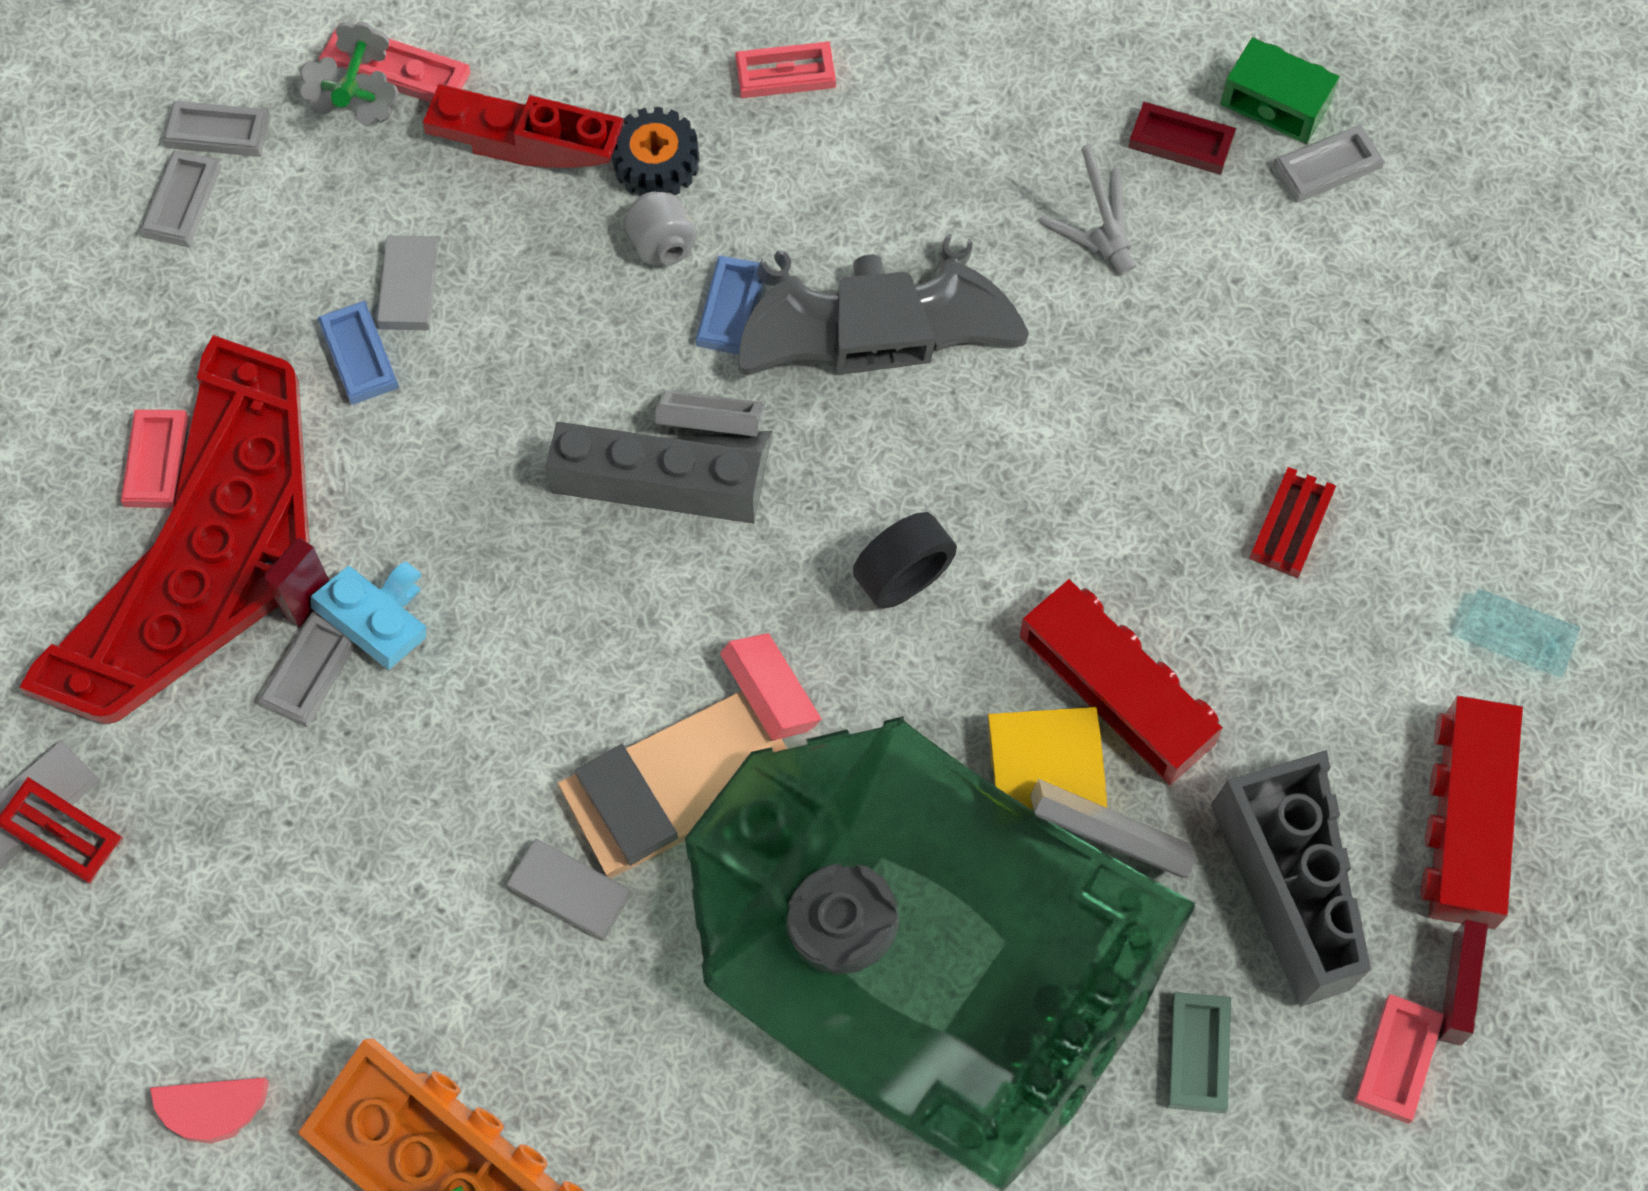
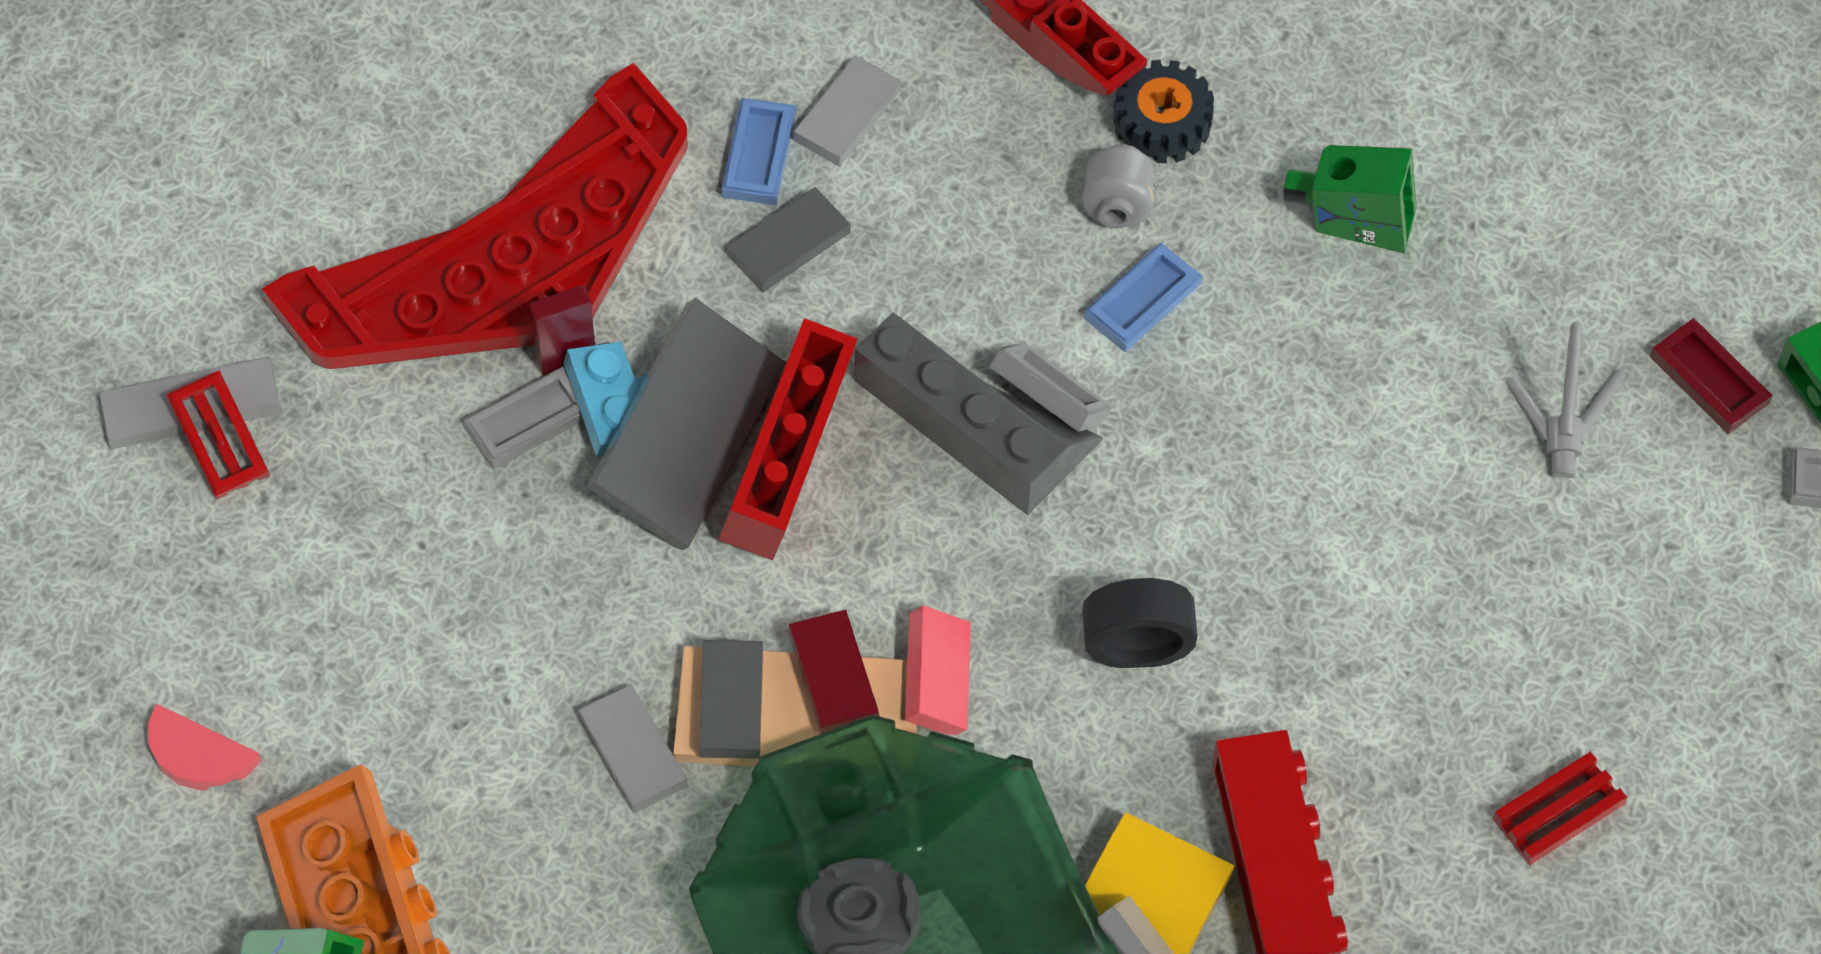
camera: 30 degrees right, 5 degrees down
(154, 458) = (511, 148): coral tile -> none
(427, 409) = (788, 239): none -> dark grey tile
(446, 603) = (686, 425): none -> dark grey tile
(536, 569) = (788, 439): none -> red brick
(692, 735) = (832, 670): none -> dark red tile
(785, 76) = (1345, 104): coral tile -> none
(847, 137) = (1359, 194): none -> green torso
(876, 316) = (1275, 383): dark grey torso -> none

